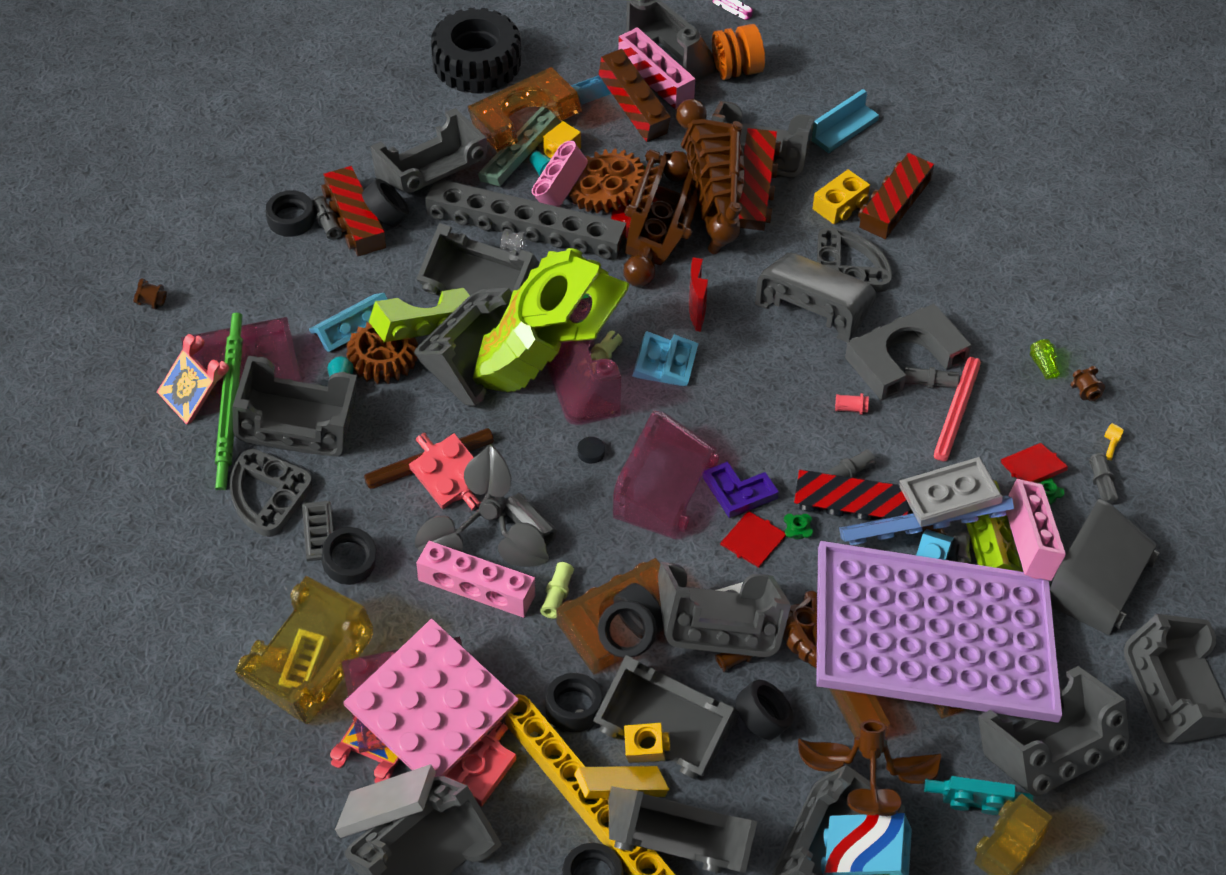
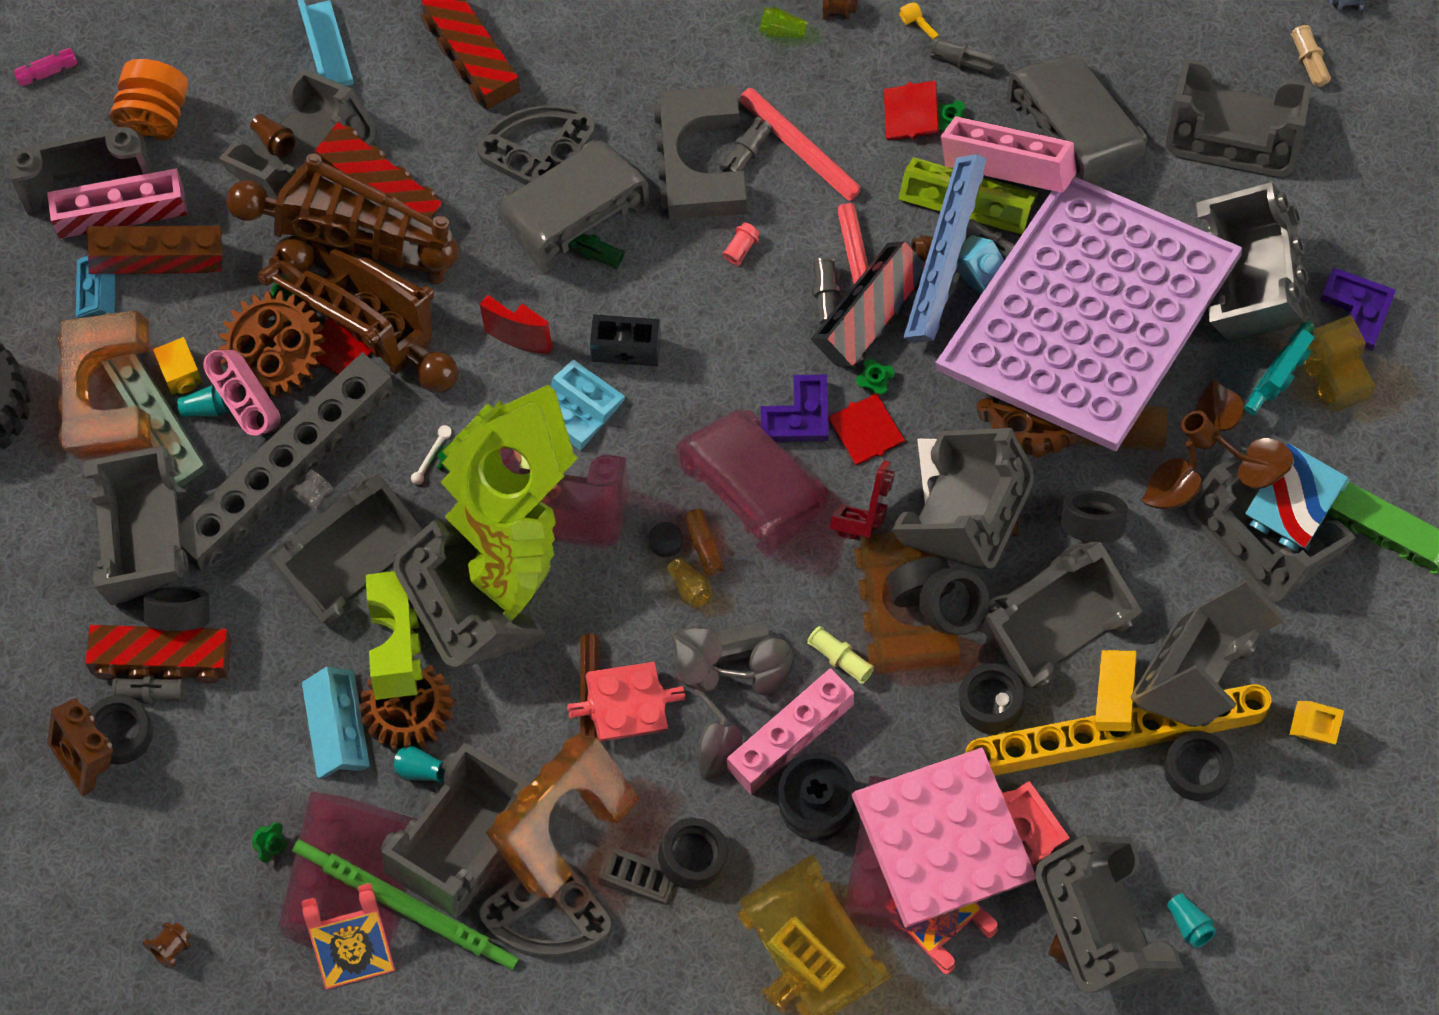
camera: 60 degrees left, 15 degrees up
(246, 310) = (269, 841): none -> green plate
(263, 189) = (78, 744): none -> reddish brown plate
(371, 449) = (523, 829): none -> clear orange arch
(386, 801) = (1040, 929): light grey tile -> none
(427, 600) = (812, 777): none -> black wheel
(562, 476) = (691, 585): none -> clear yellow cone
(600, 472) = (704, 542): none -> clear orange axle
(636, 733) = (1066, 658): yellow brick -> none
(689, 549) = (855, 521): none -> dark red bracket
(727, 361) = (625, 340): none -> black brick
(758, 120) = (274, 136): none -> reddish brown cone
(791, 321) = (610, 255): none -> dark green pin
(841, 197) = (439, 105): yellow brick -> none
(905, 468) = (853, 240): none -> coral axle
(950, 491) = (938, 207): light grey tile -> none
(1088, 845) = (1364, 299): none -> dark purple plate

